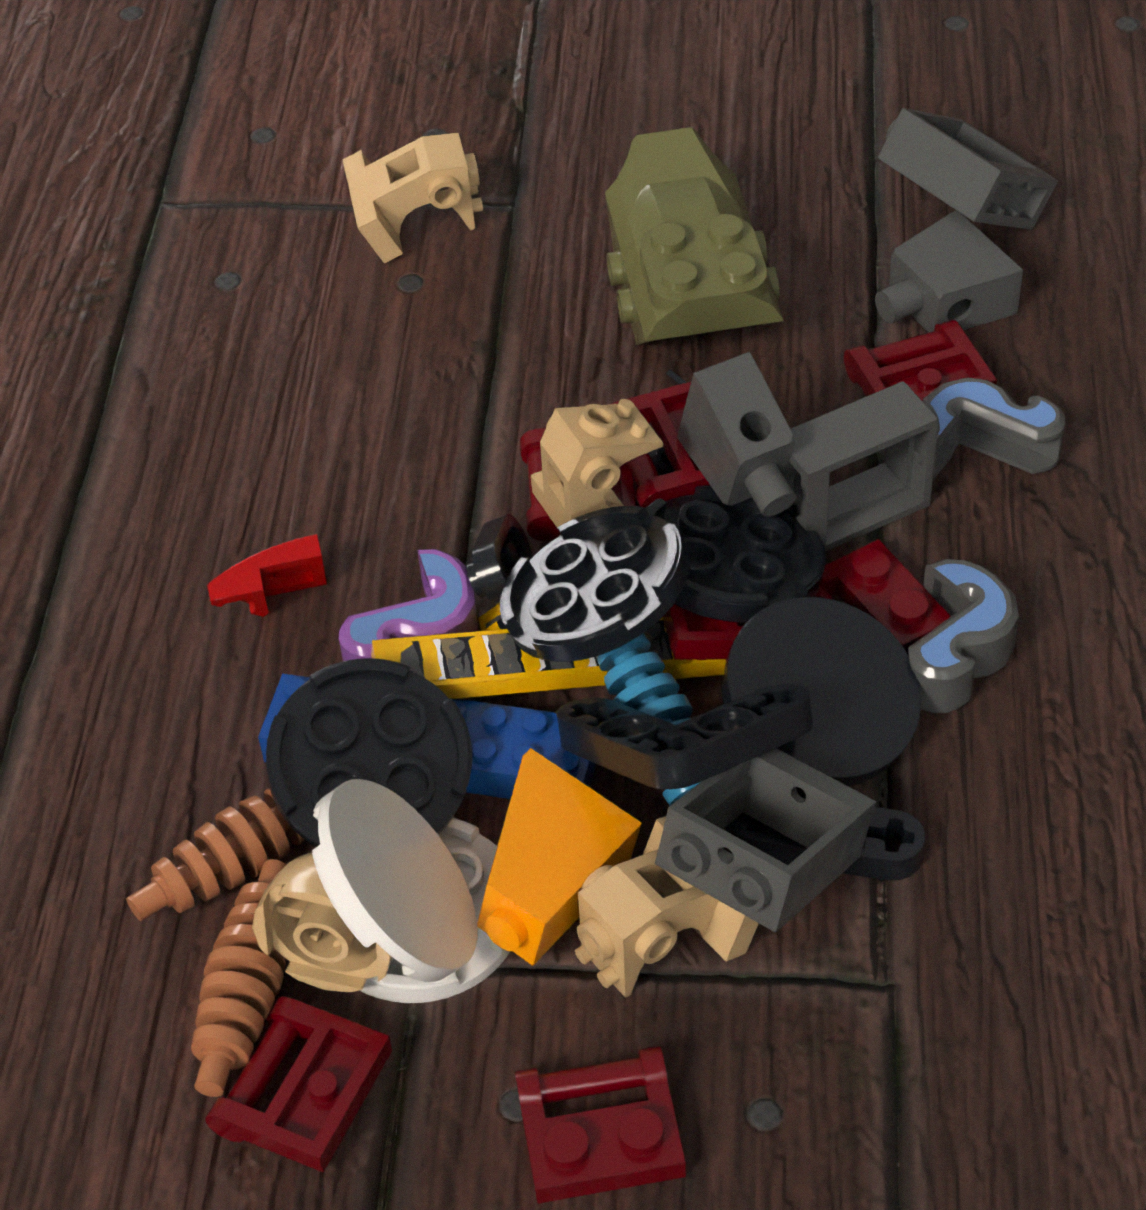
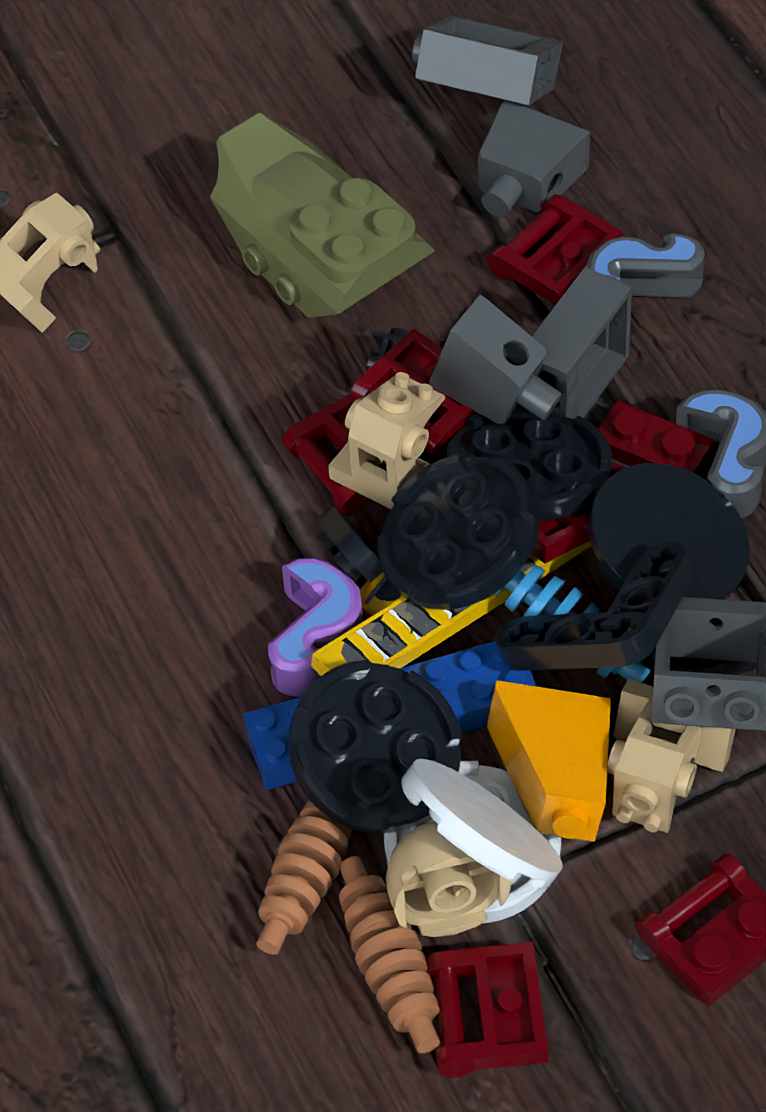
camera: 30 degrees left, 5 degrees up
(269, 573) = (162, 651): red slope -> none

